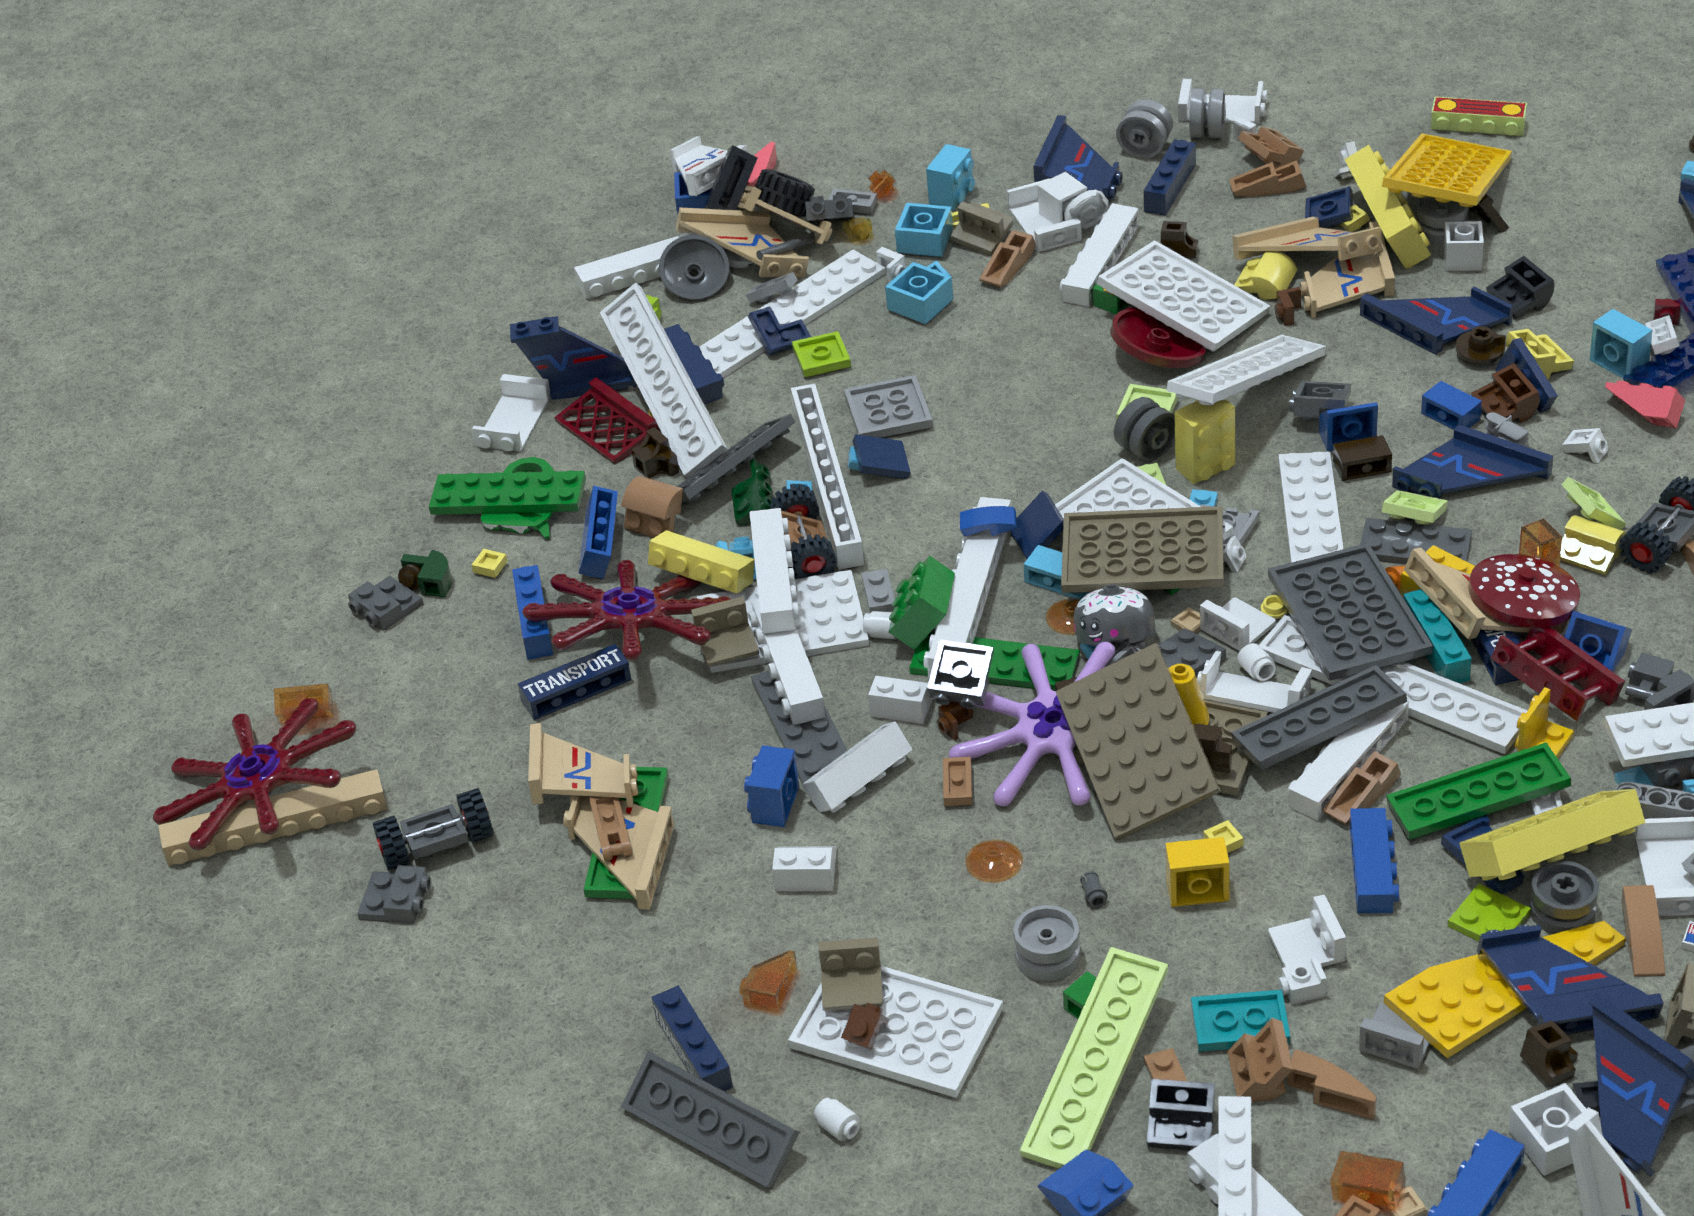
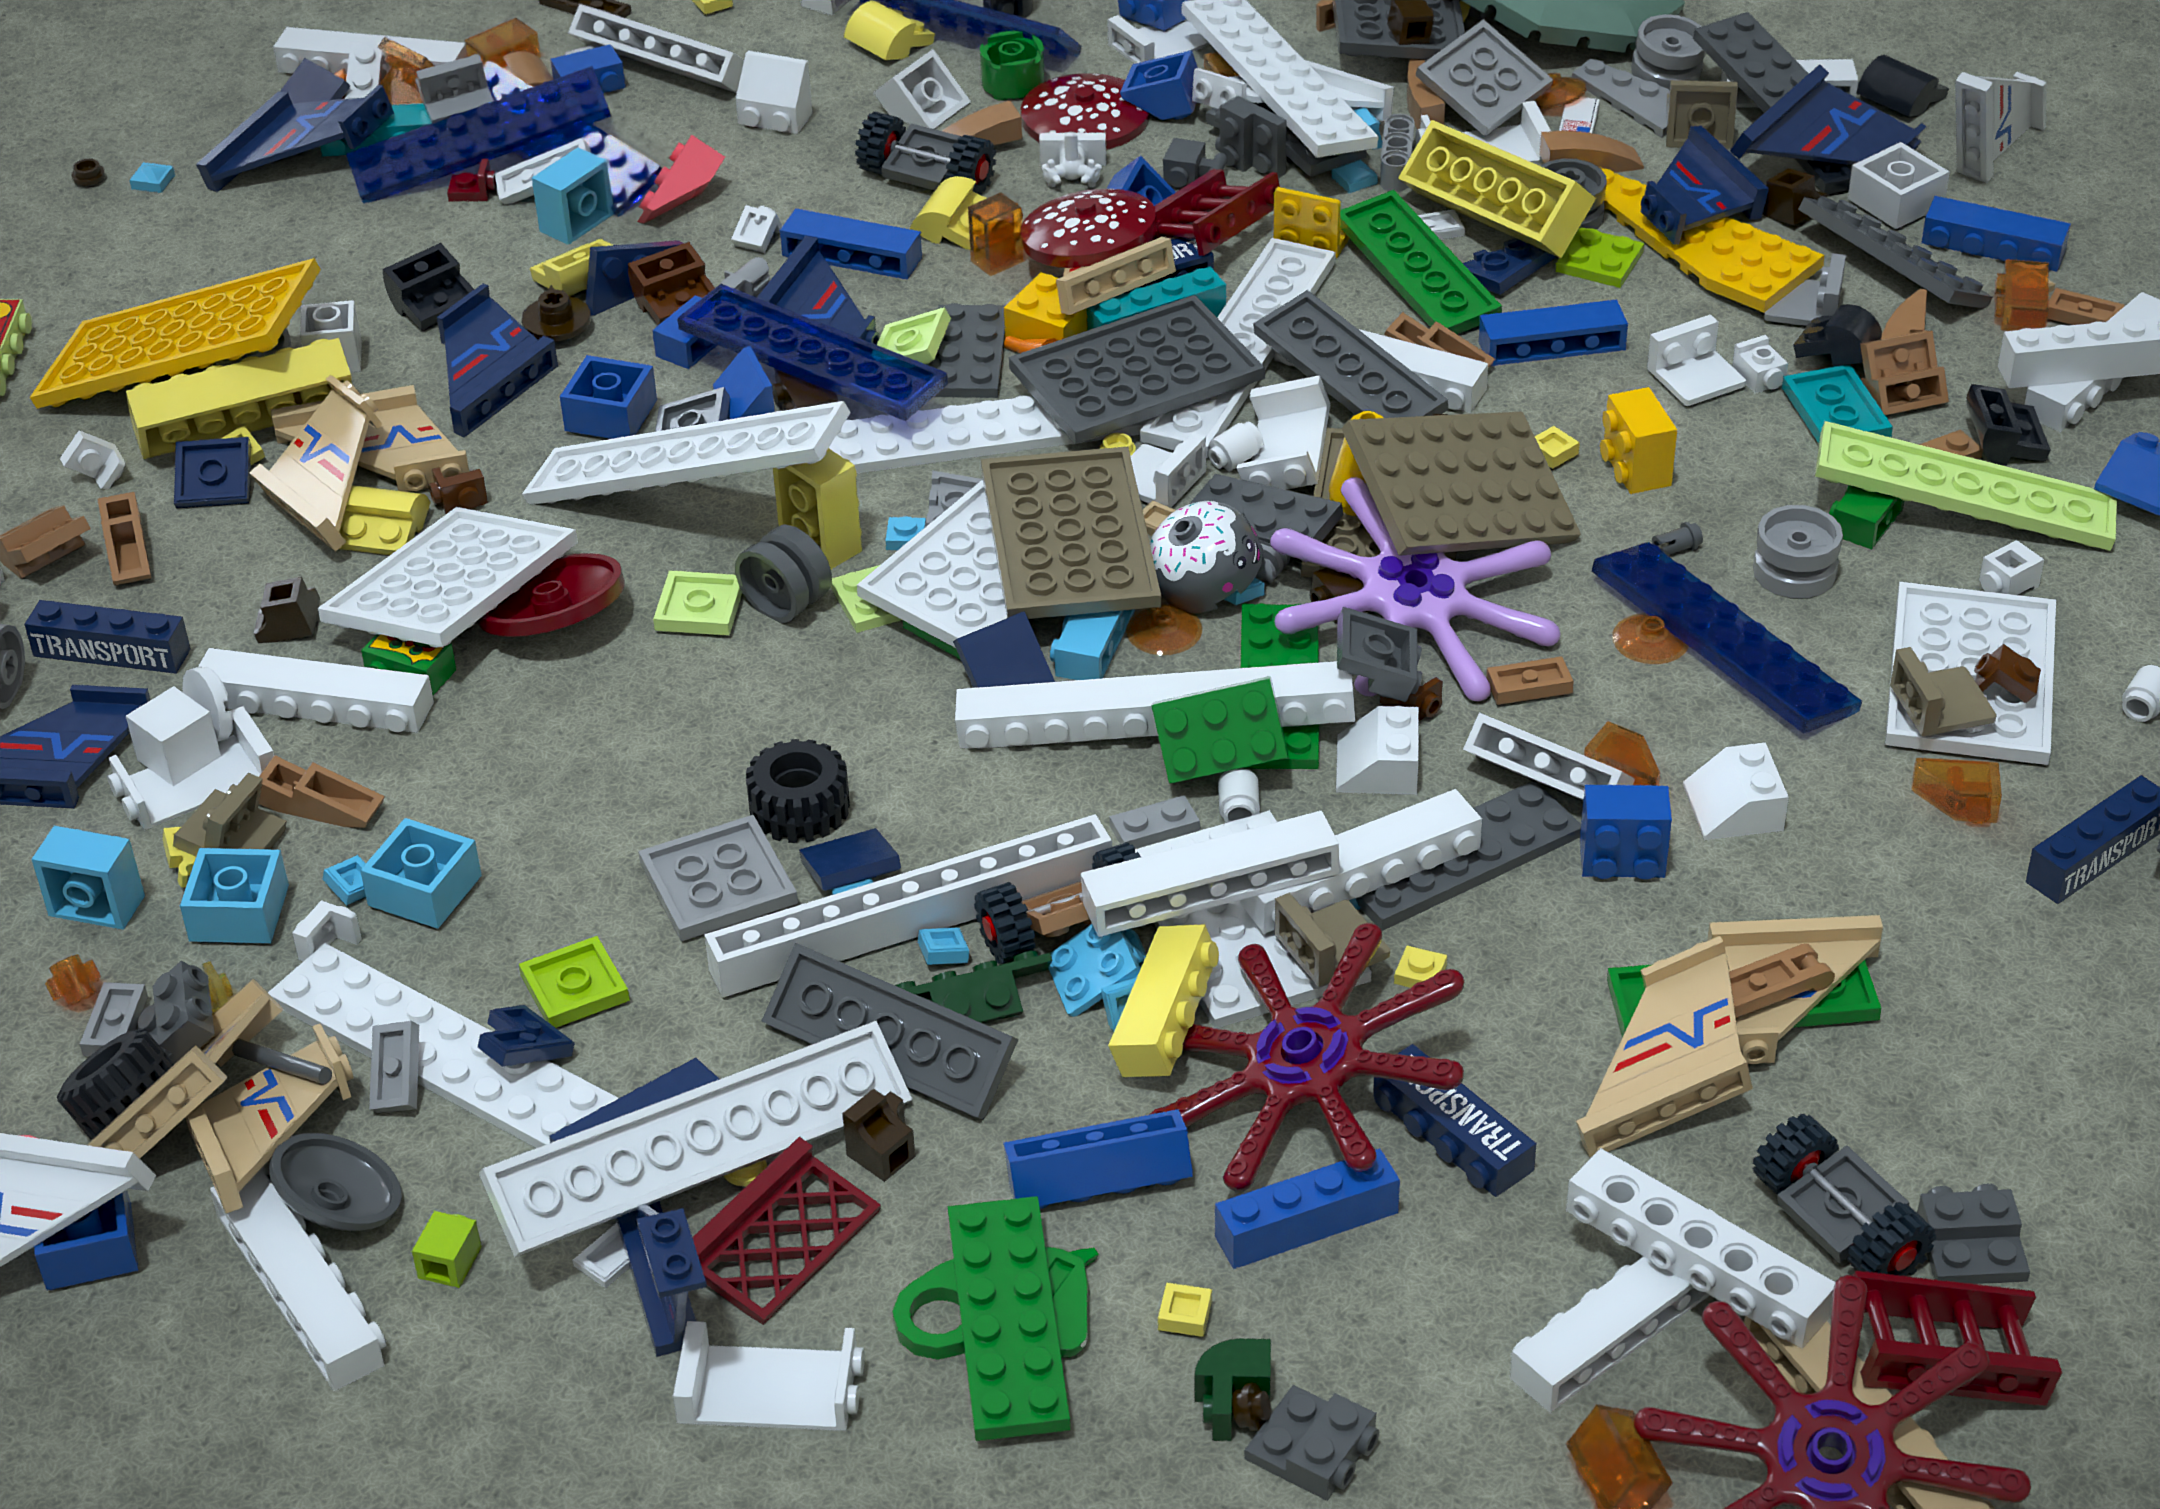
camera: 105 degrees left, 0 degrees up
(292, 832) = (1895, 1364): none -> dark red fence
(408, 733) = (1600, 1331): none -> white brick
(413, 744) = (1701, 1248): none -> white brick
(651, 506) = (1031, 1086): medium nougat brick -> none
(708, 692) = (1418, 966): none -> light yellow plate
(731, 179) = (80, 1123): black hinge -> none
(854, 811) = (1625, 752): none -> clear orange slope
(945, 435) = (798, 790): none -> black tyre
(975, 893) = (1727, 637): none -> clear blue plate
(995, 518) = (1035, 683): blue slope -> none
(998, 1073) = (2003, 575): none -> white brick
(1322, 1032) = (1839, 335): none -> black brick
(1369, 363) = (608, 397): none -> blue brick
(1386, 446) = (814, 351): none -> clear blue plate
(1448, 1103) = (1893, 251): none -> dark grey plate
(1548, 496) = (855, 243): none -> blue brick
(1592, 504) = (897, 206): yellowish green plate -> none
(1662, 612) = (1072, 156): none -> white piece

